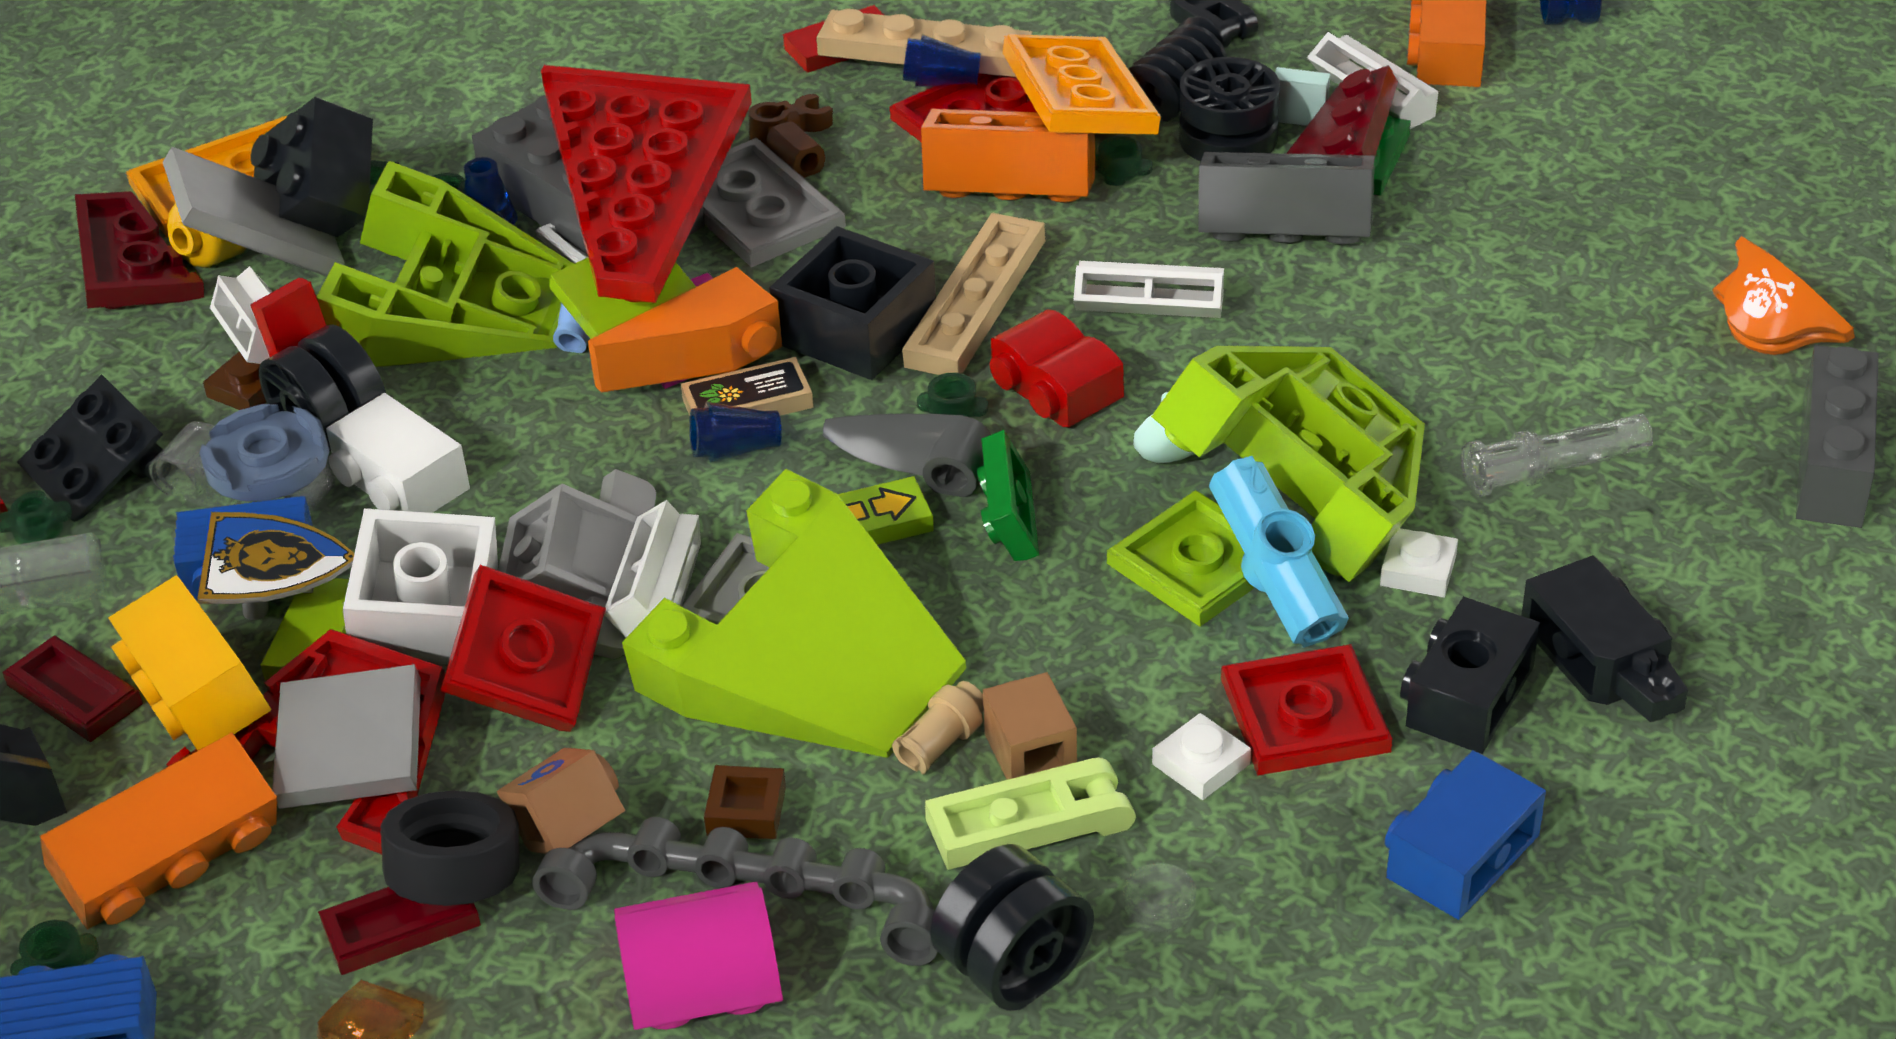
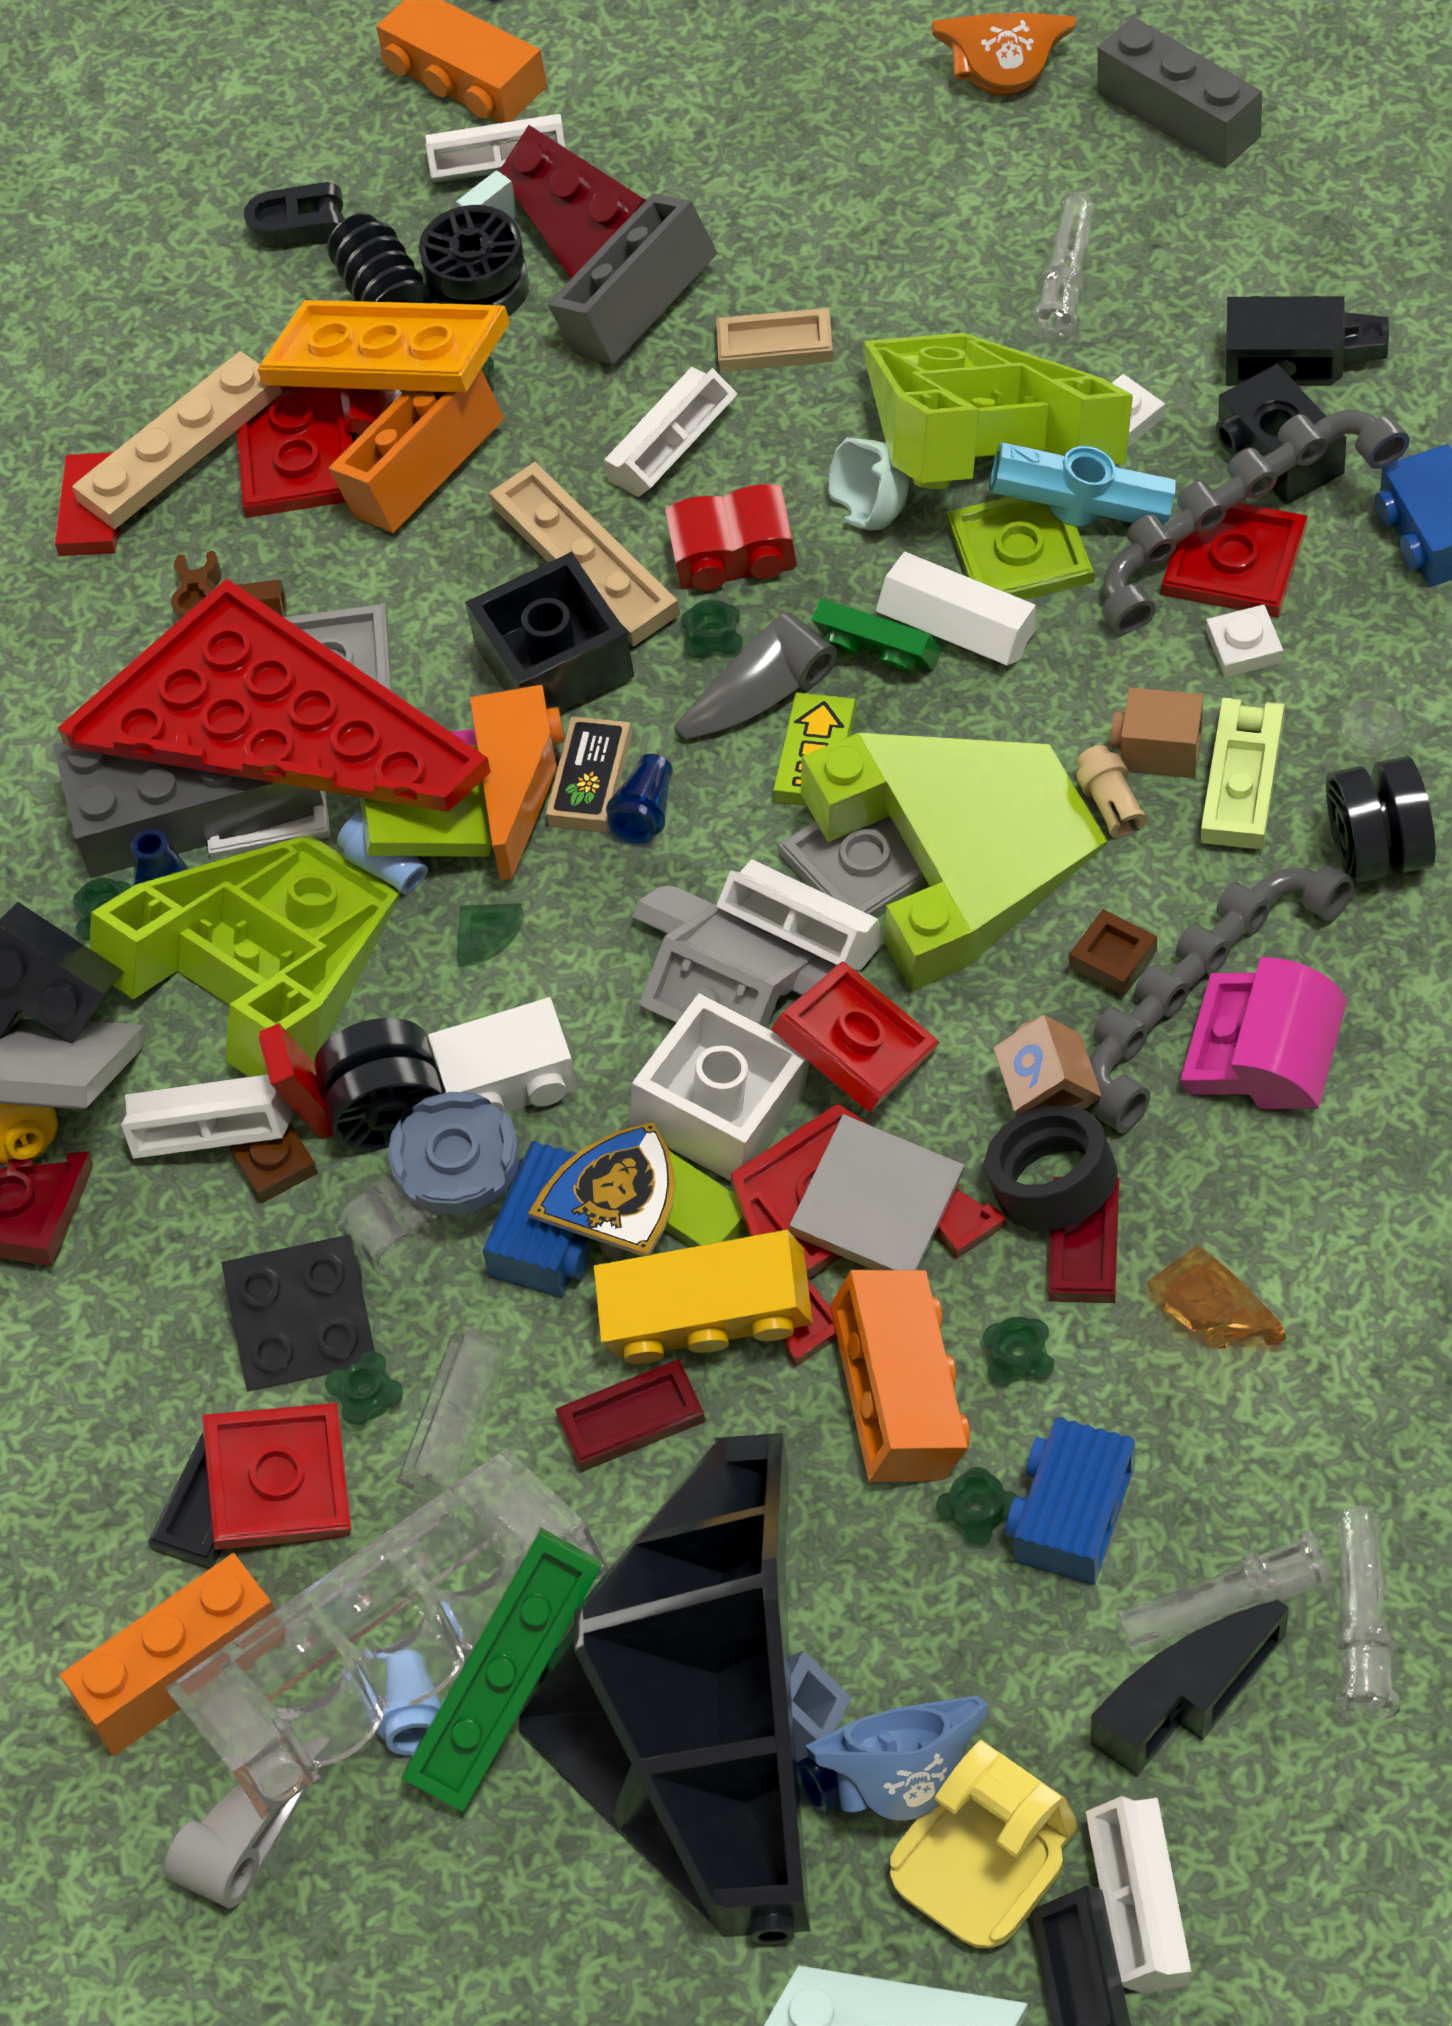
camera: 55 degrees left, 15 degrees up
(243, 916) = (1014, 1333): none -> clear green plate
(542, 402) = (485, 930): none -> clear green tile
(939, 63) = (230, 442): clear blue cone -> none
(1075, 538) = (957, 609): none -> white piece
(1312, 312) = (774, 340): none -> tan tile
(1469, 718) = (1129, 606): none -> dark grey bar

